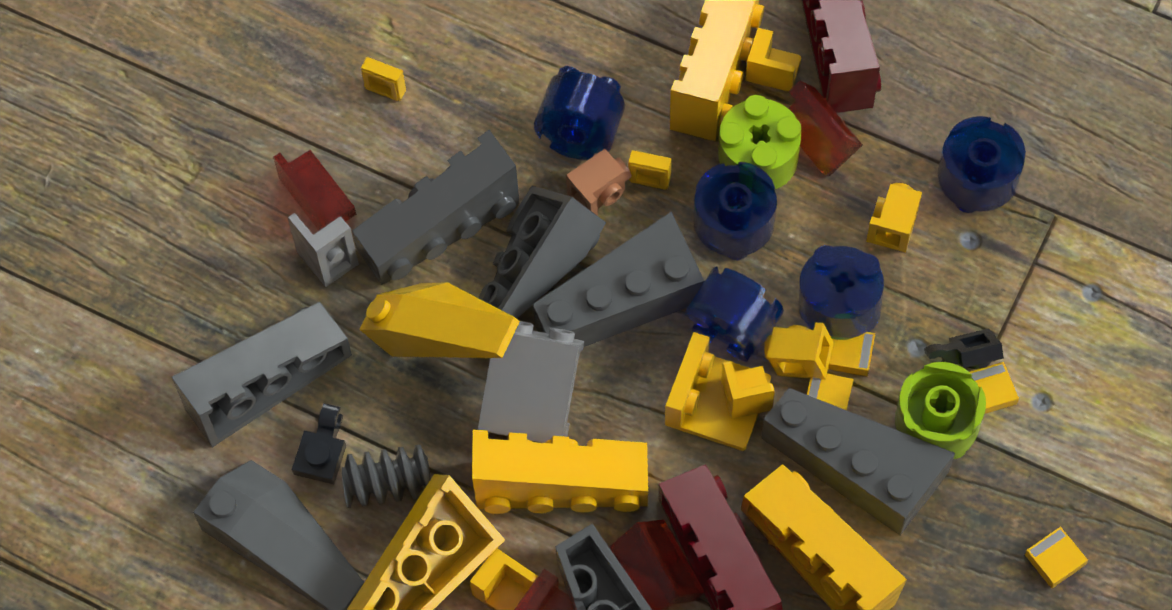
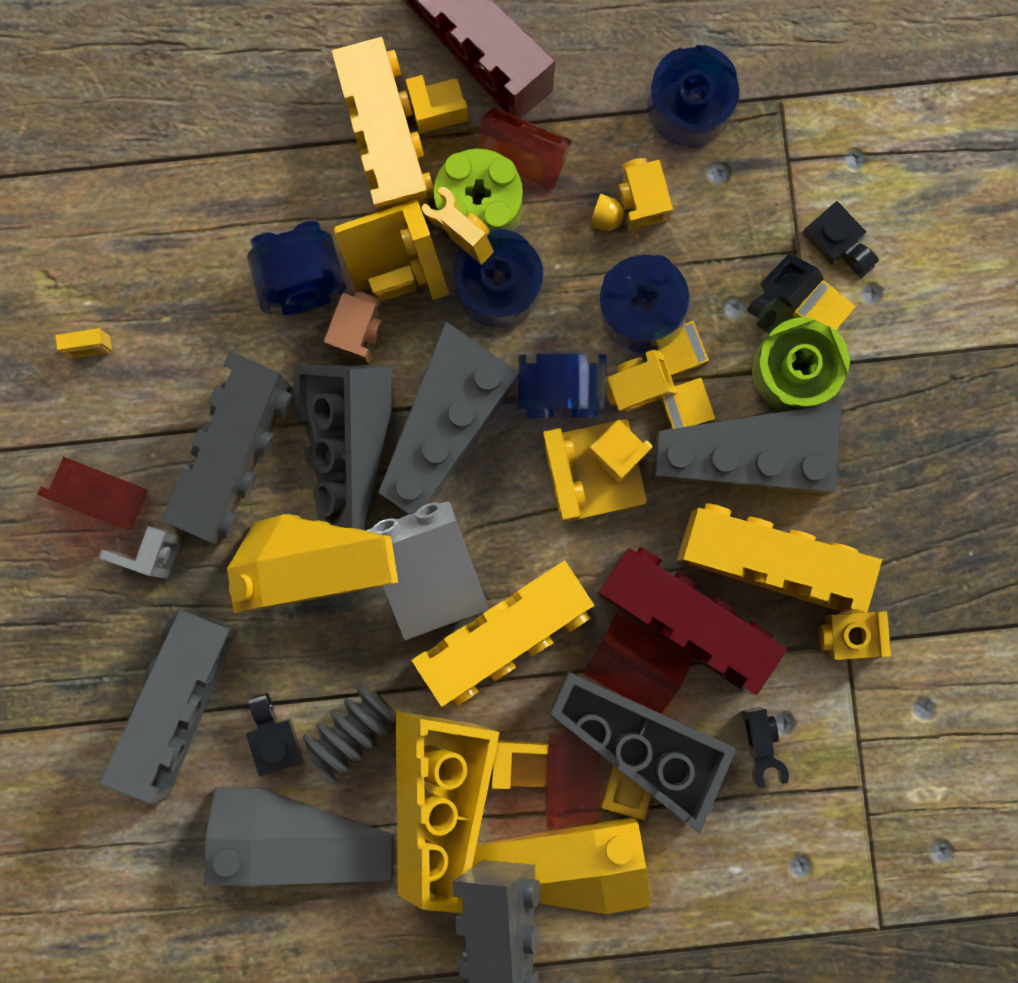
camera: 35 degrees left, 20 degrees up
(665, 130) = (388, 243): none -> yellow bracket
(728, 149) = (465, 231): none -> yellow plate
(855, 214) = (607, 214): none -> yellow hinge
(1041, 340) = (837, 236): none -> black plate
(1056, 557) = (970, 435): yellow tile -> none

